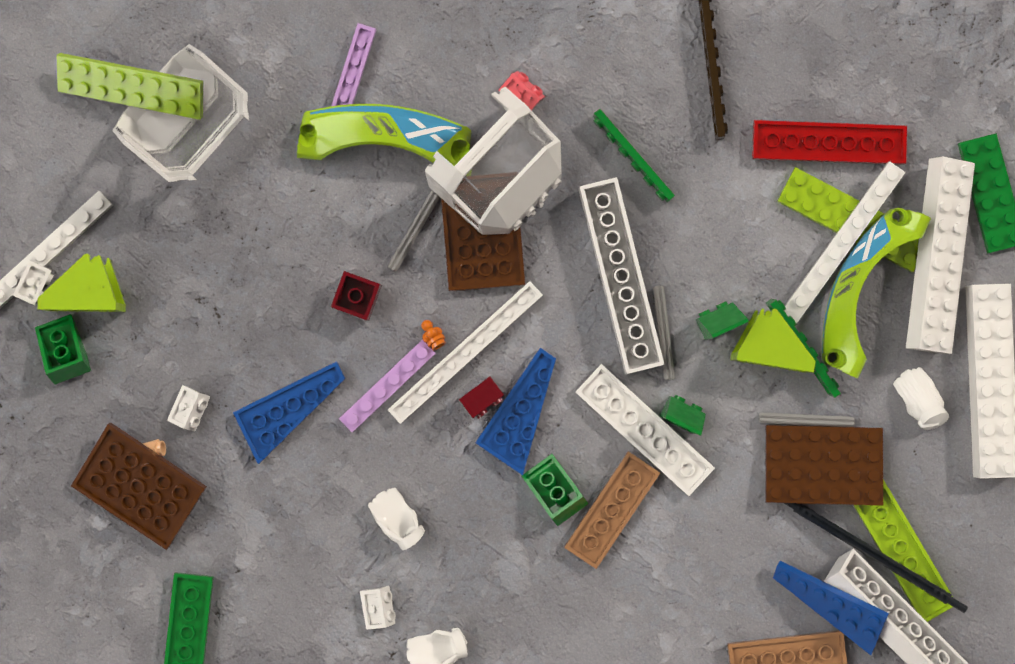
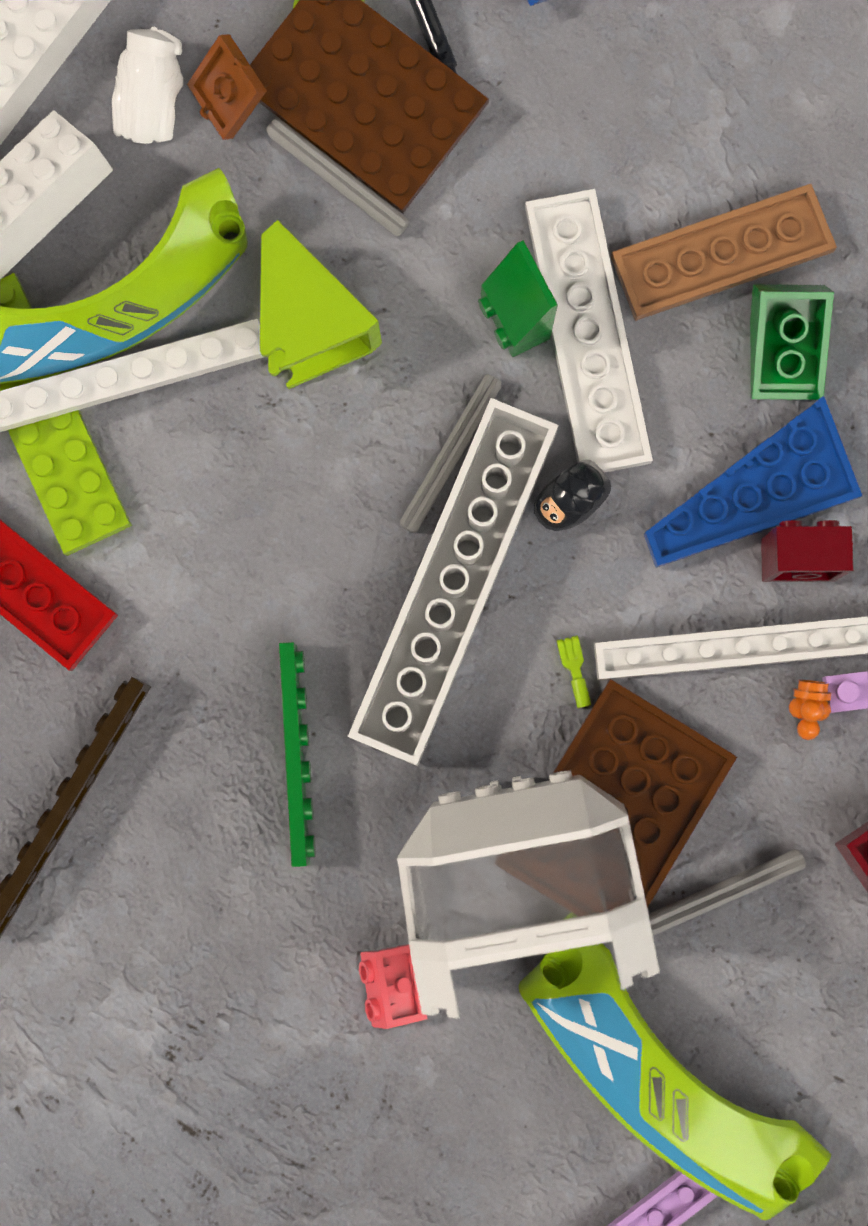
camera: 135 degrees left, 5 degrees down
(546, 282) = (572, 660): none -> lime piece
(598, 350) = (572, 496): none -> black piece
(720, 320) = (354, 399): green slope -> none
(820, 370) = (265, 199): green plate -> none
(885, 422) = (226, 87): none -> dark orange plate

